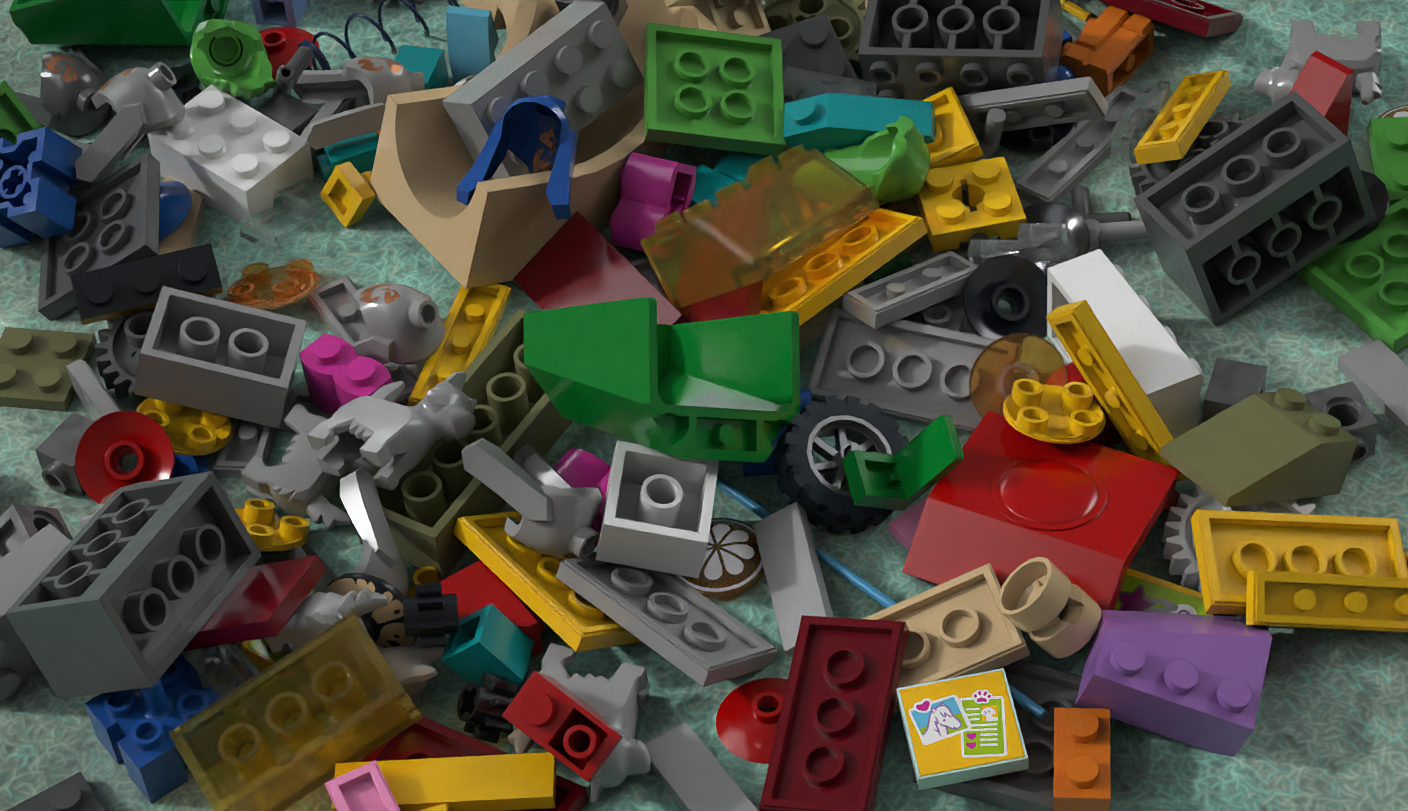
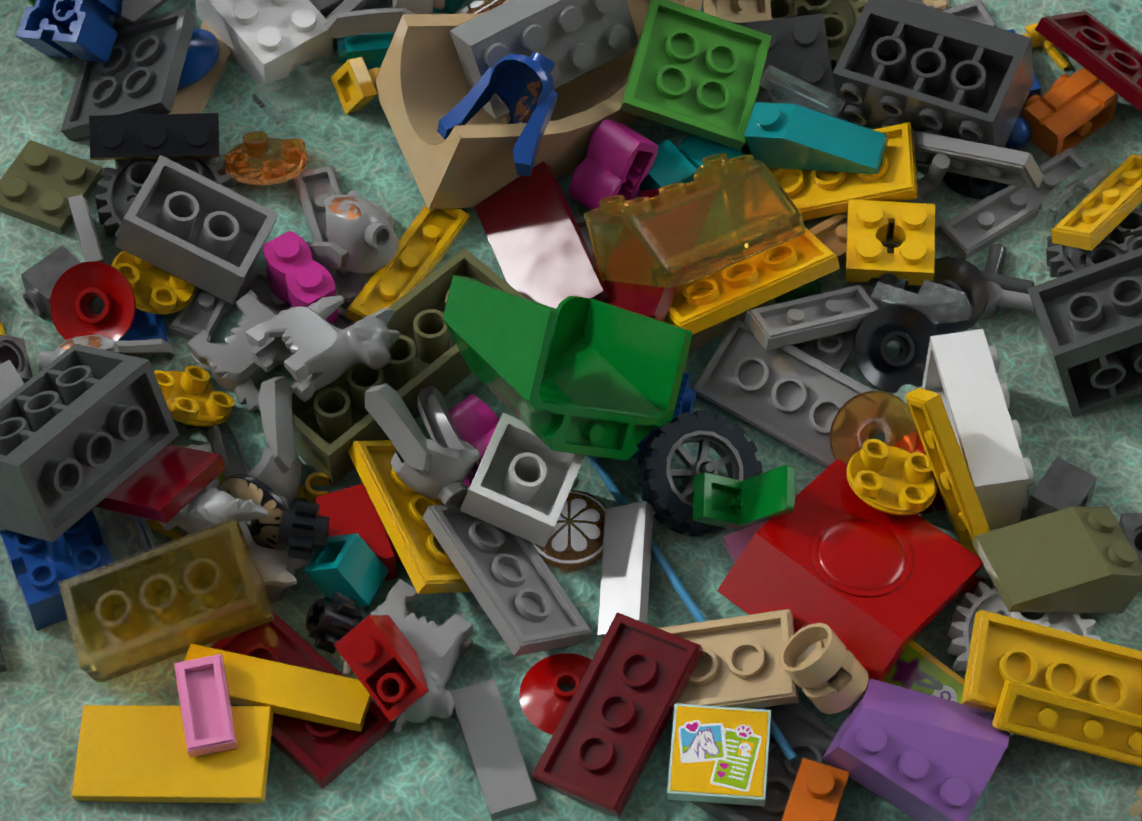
camera: 10 degrees right, 10 degrees up
(889, 161) = (822, 188): bright green hair -> none

